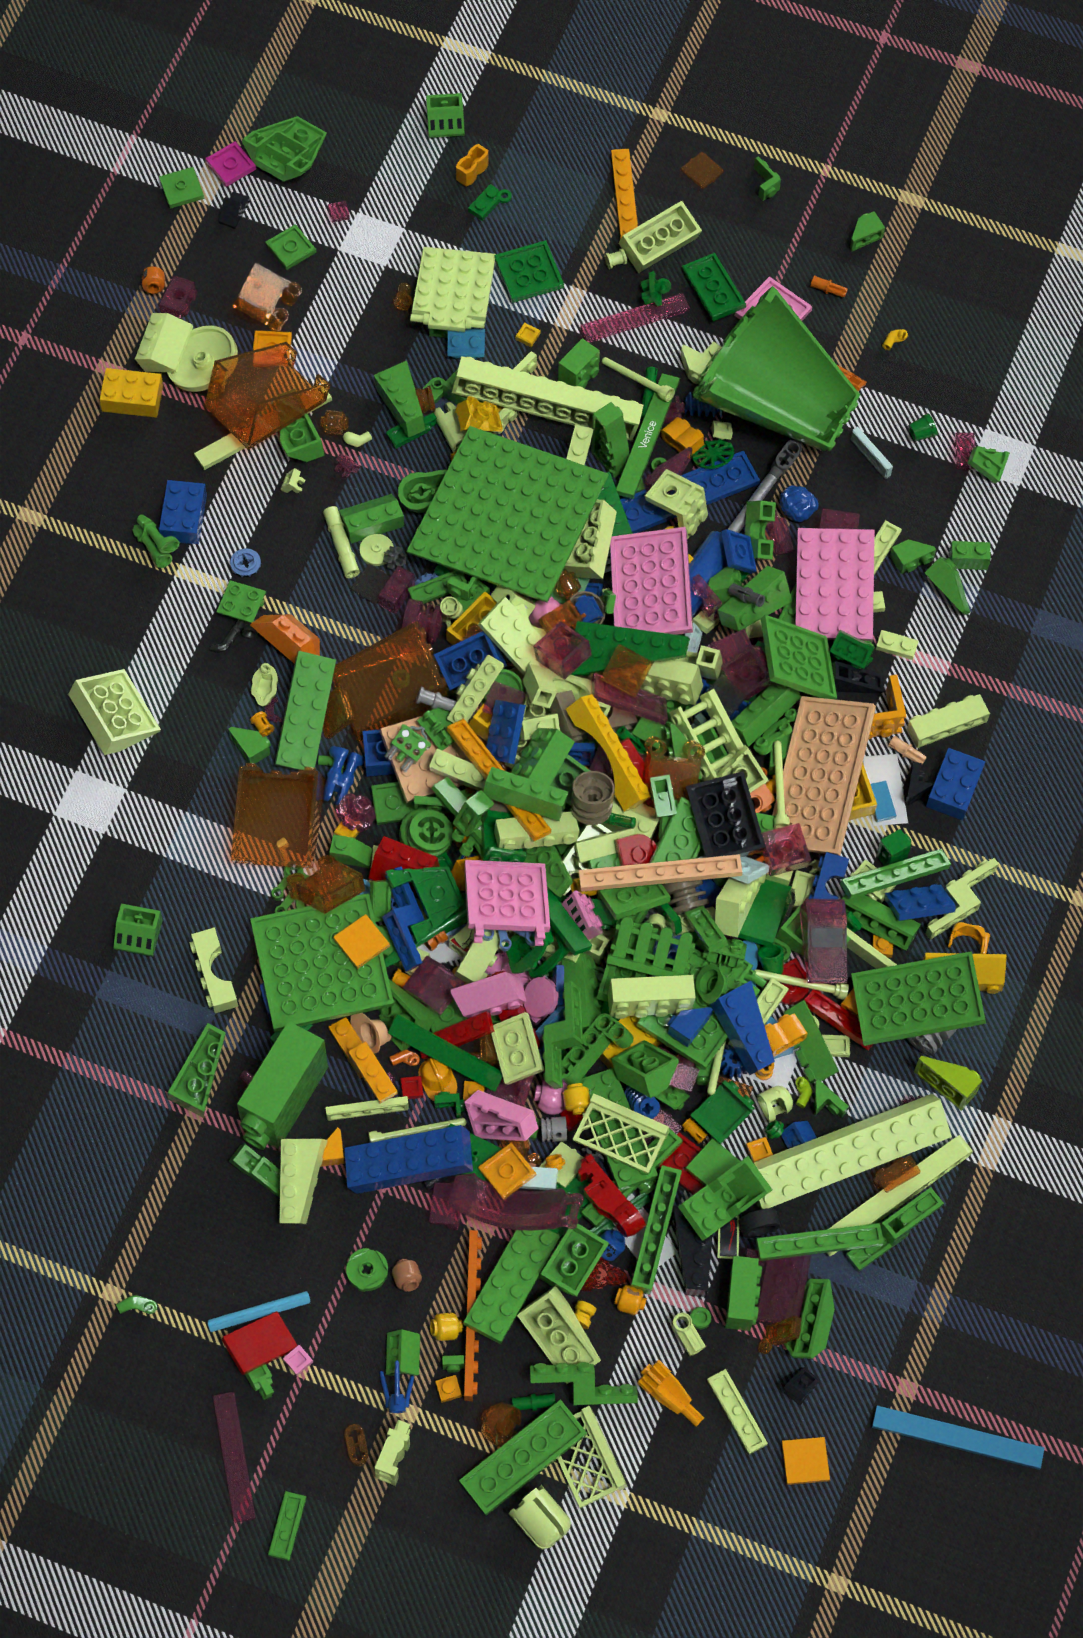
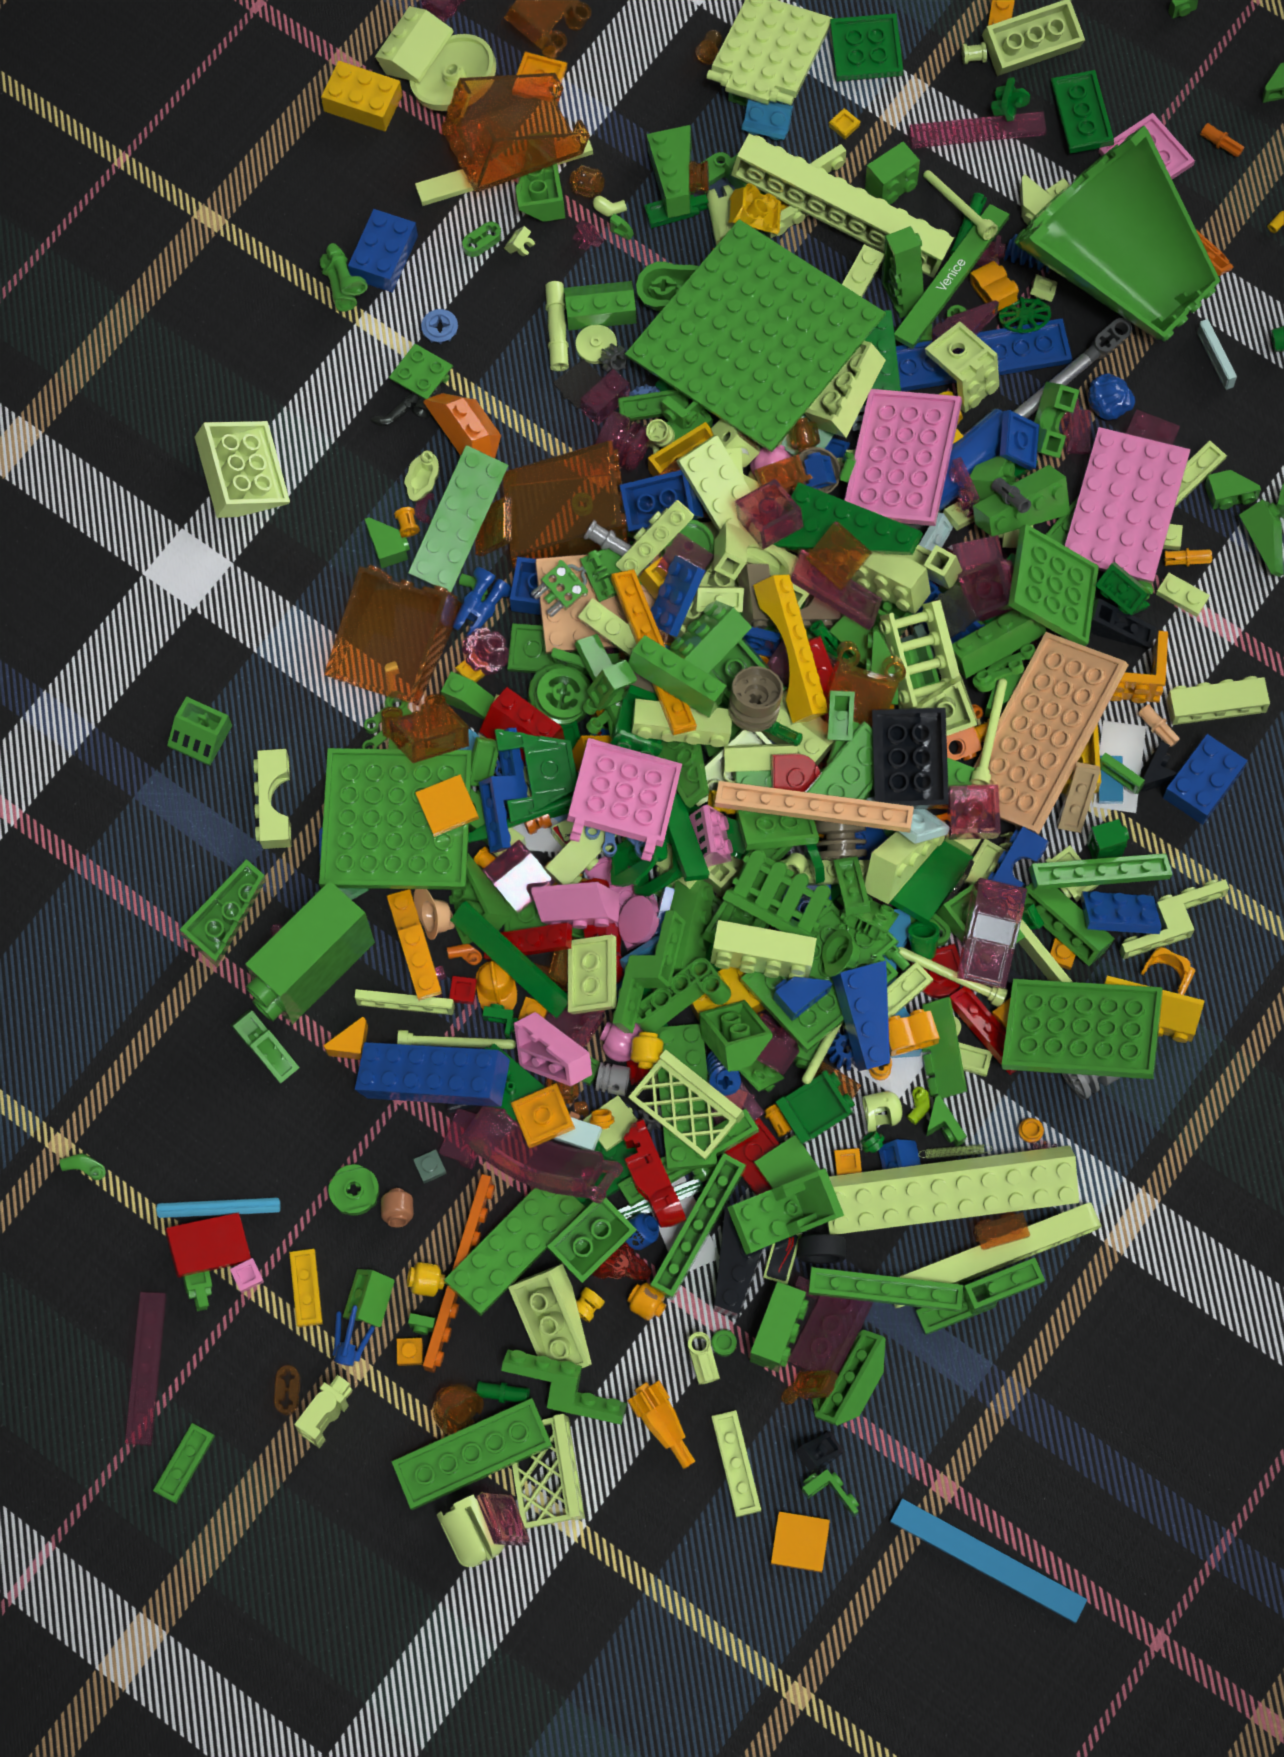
camera: 20 degrees right, 5 degrees up
(258, 484) = (481, 238): none -> bright green beam
(299, 1177) = (301, 1065): yellowish green wedge -> none
(349, 1358) = (306, 1288): none -> yellow tile
(371, 453) = (620, 227): none -> bright green tile
(423, 1235) = (429, 1166): none -> sand green plate
(564, 1502) = (503, 1519): none -> clear pink tile
(820, 1406) = (816, 1483): none -> bright green bracket
(839, 1124) = (953, 1150): none -> yellowish green piece
(862, 819) = (1078, 797): none -> tan plate
(890, 794) = (1121, 773): none -> bright green tile
(893, 614) = (1188, 557): none -> light orange axle
(896, 1090) = (1031, 1130): none -> light orange plate
(950, 1080) = (1098, 1135): lime slope -> none

